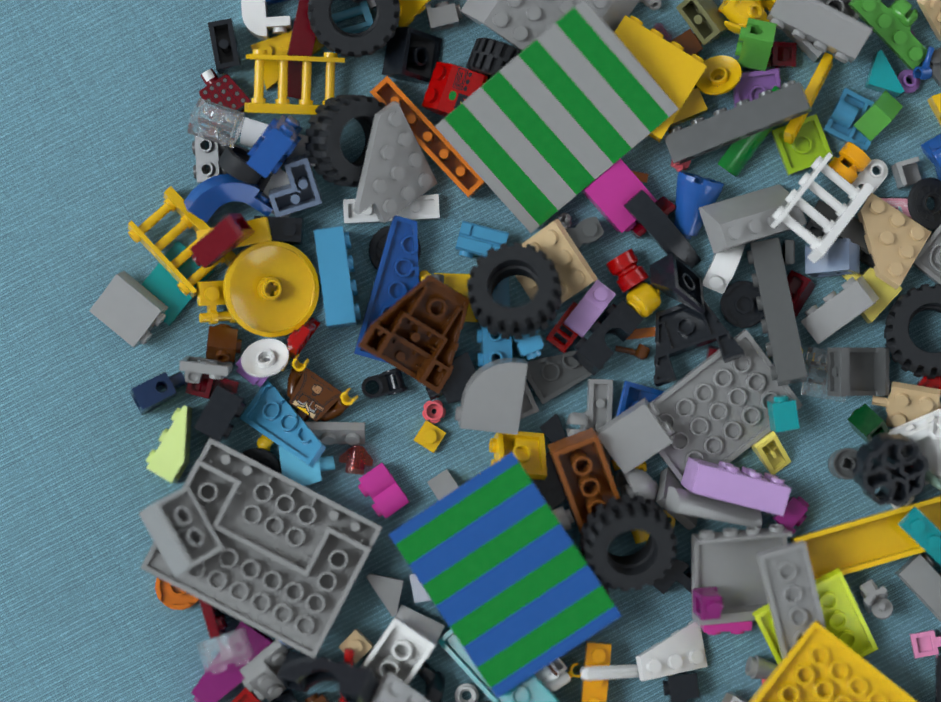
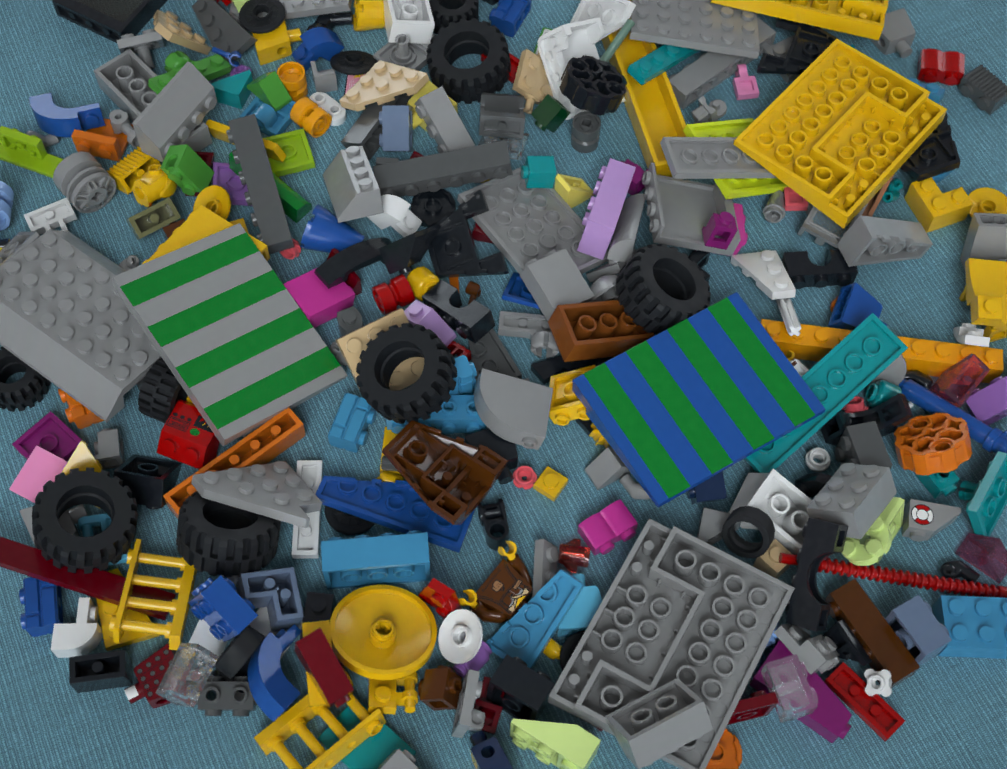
camera: 85 degrees left, 25 degrees down
(372, 619) = (740, 546): none -> black tyre
(843, 211) = (351, 109): white fence -> none
(894, 139) = (294, 79): none -> light orange wheel

